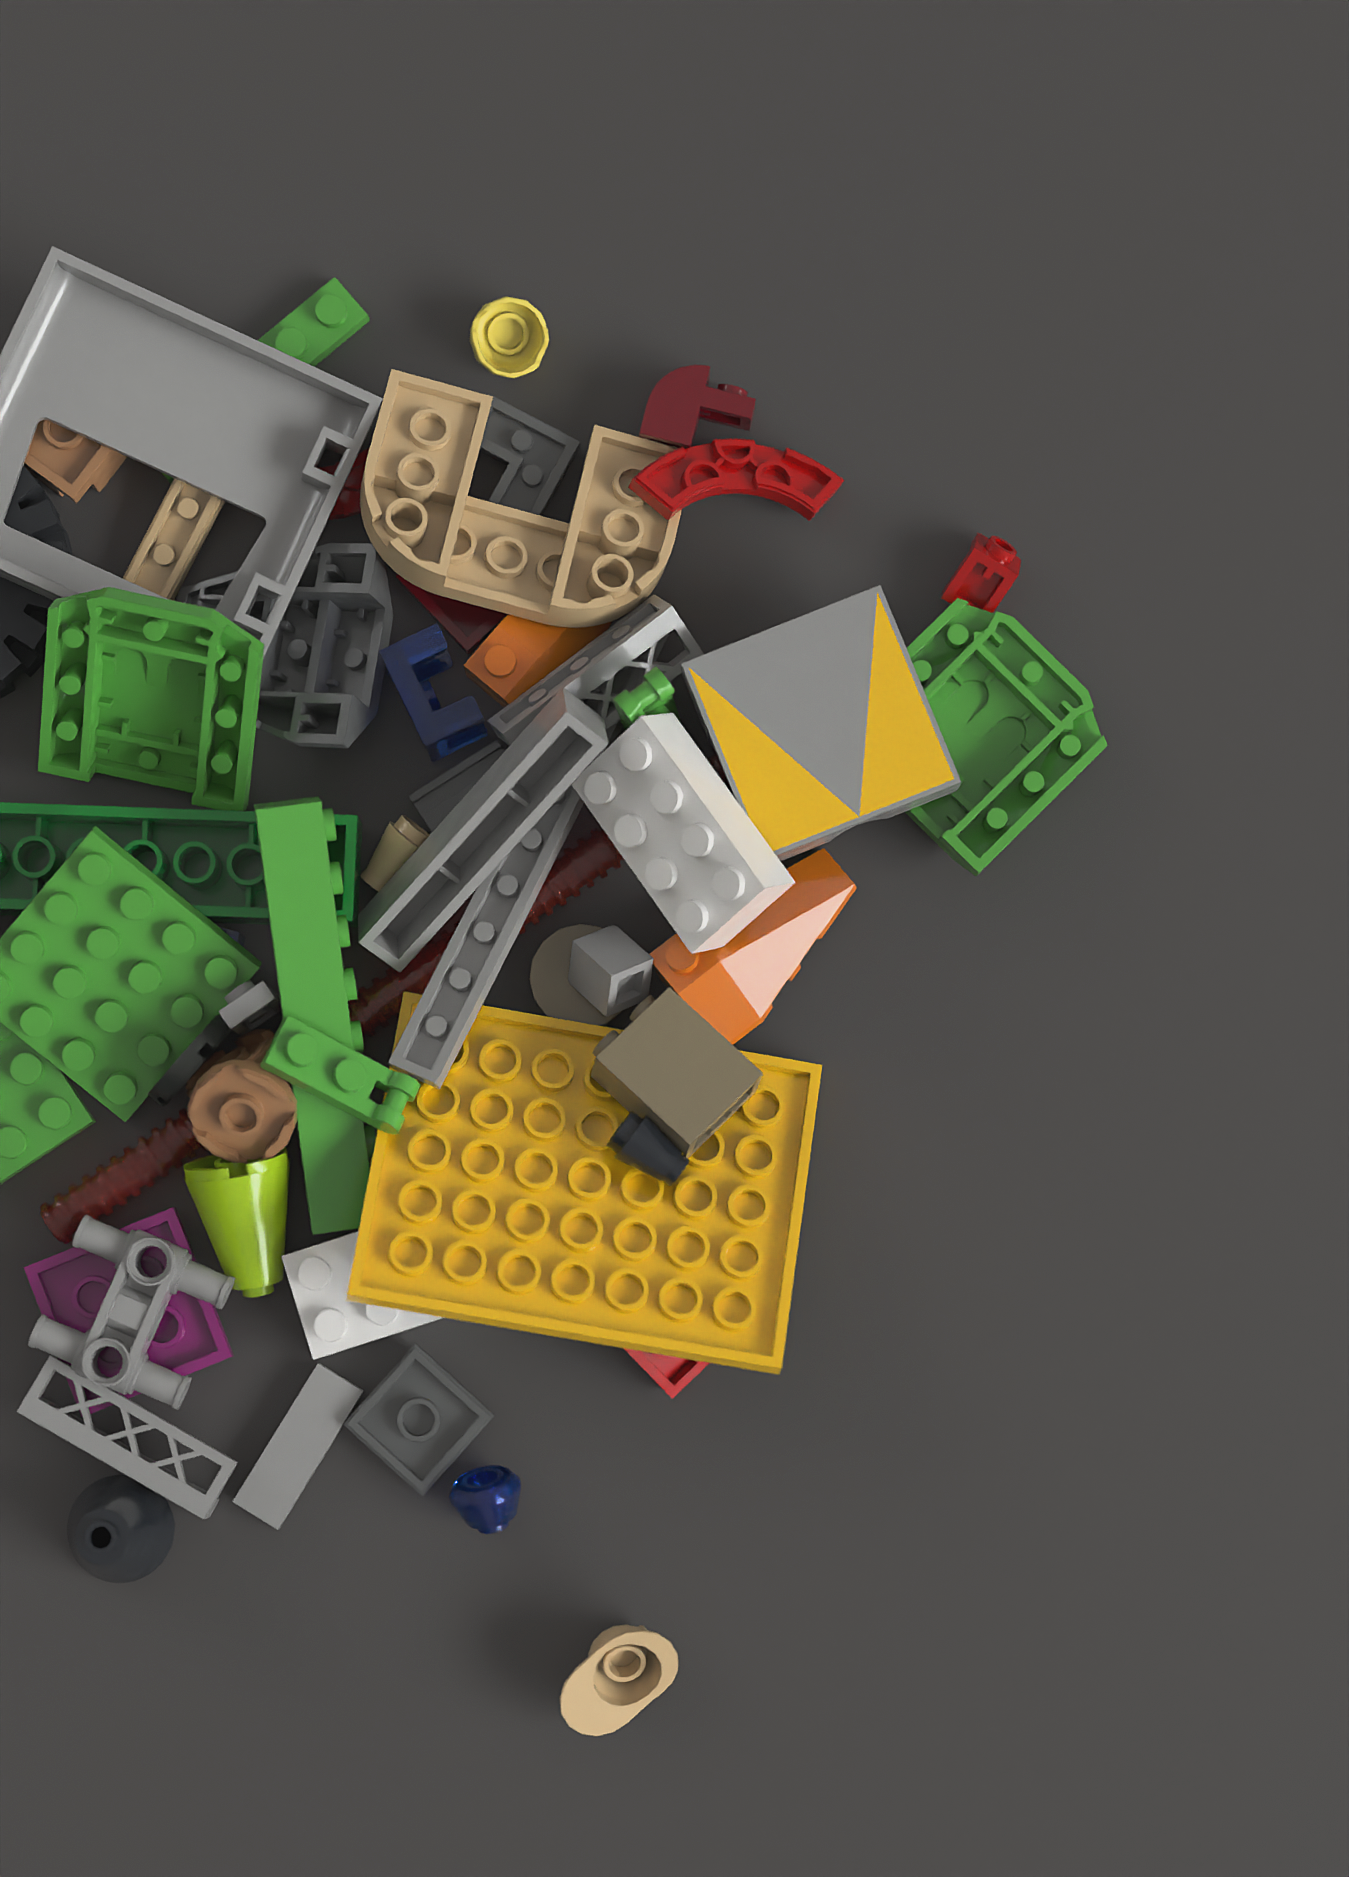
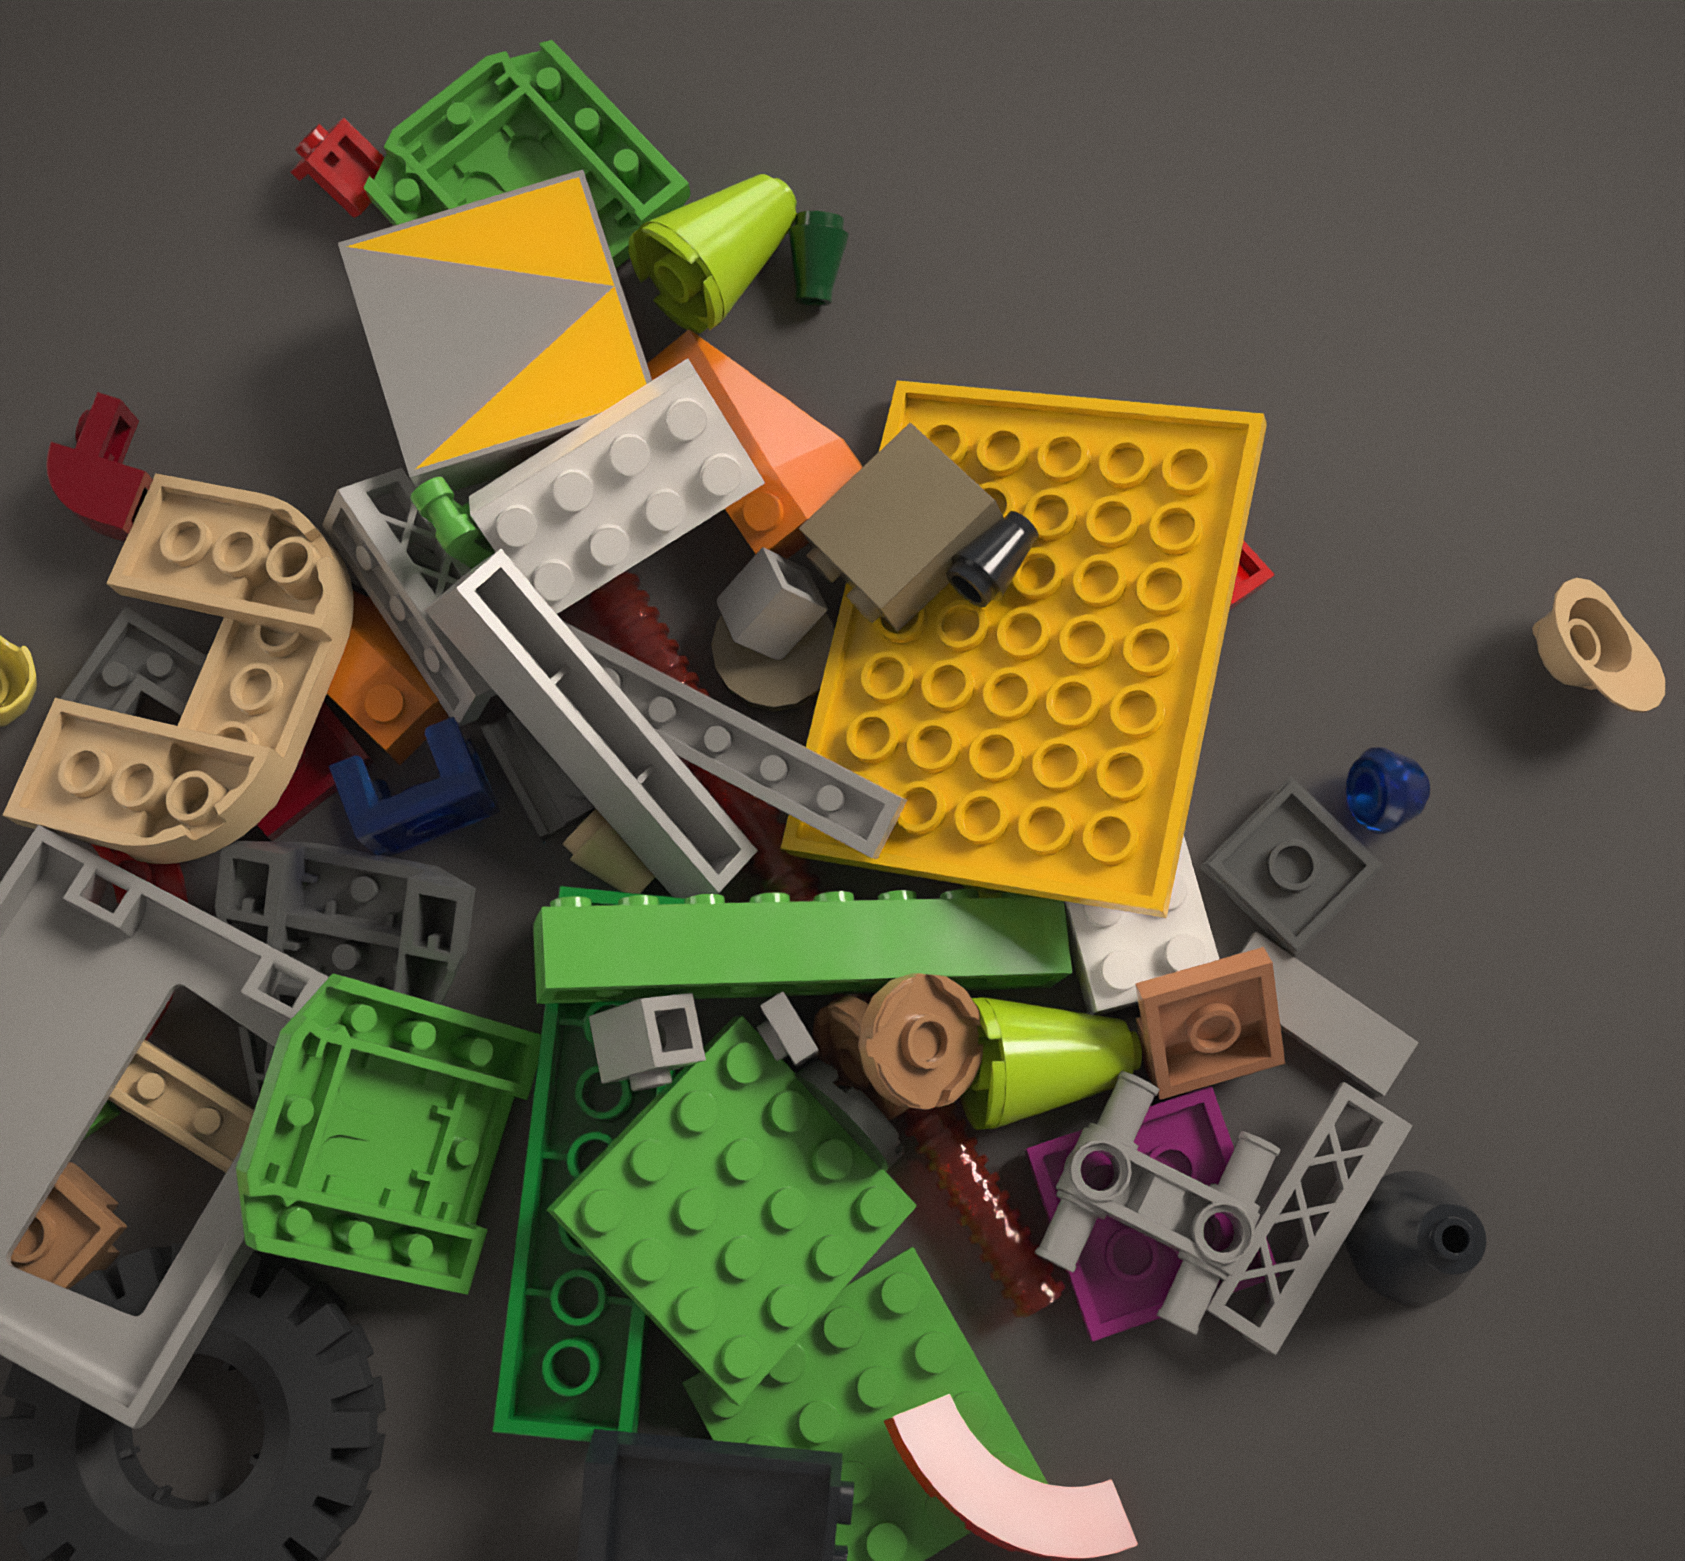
camera: 85 degrees left, 5 degrees down
(228, 893) = (647, 1040): none -> light grey brick
(275, 1348) = (1210, 1023): none -> nougat plate
(339, 1075) = (884, 916): bright green plate -> none
(735, 468) = (181, 424): red tile -> none
(928, 902) = (712, 249): none -> lime cone
(932, 989) = (816, 252): none -> dark green cone

